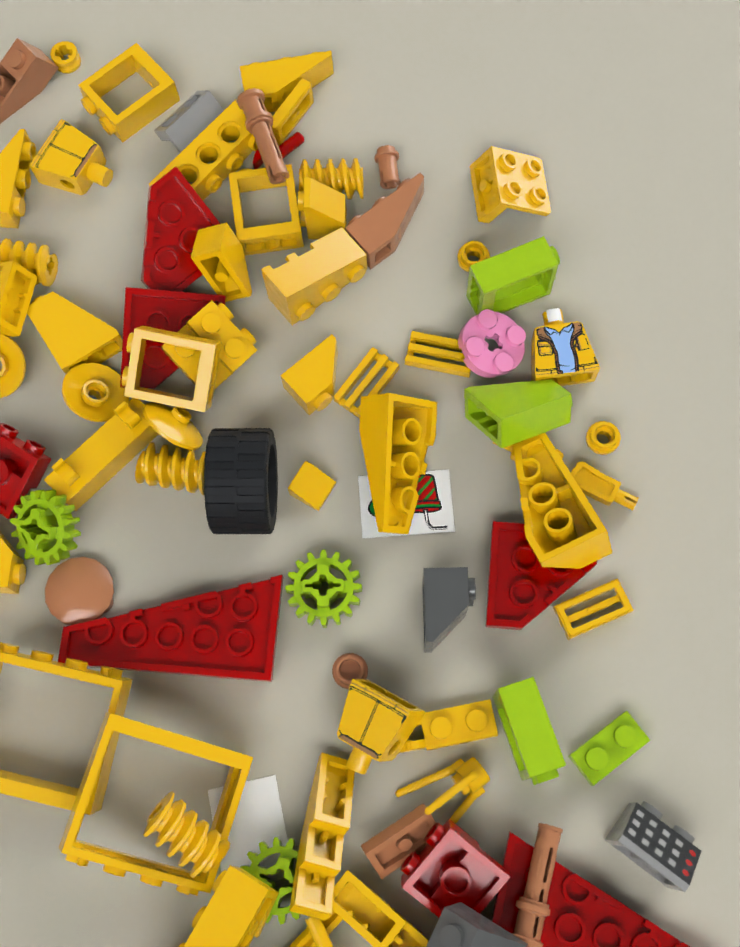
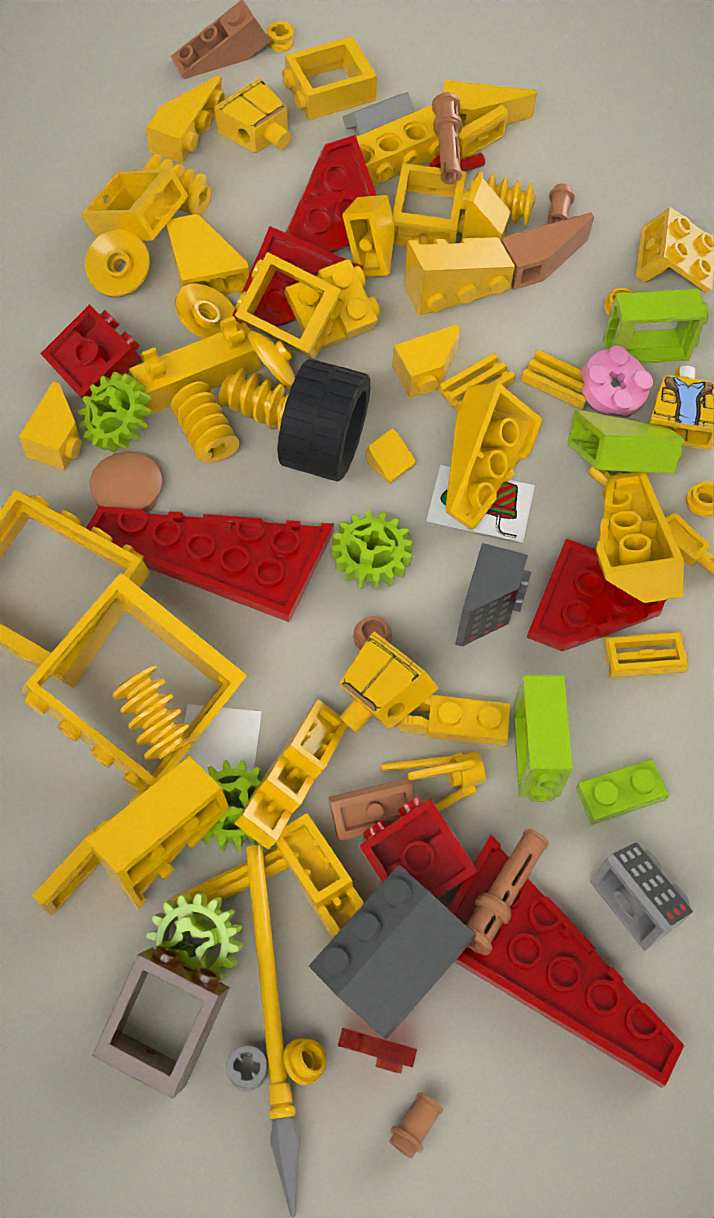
camera: 10 degrees right, 10 degrees down
(128, 512) = (204, 423): none -> yellow piece

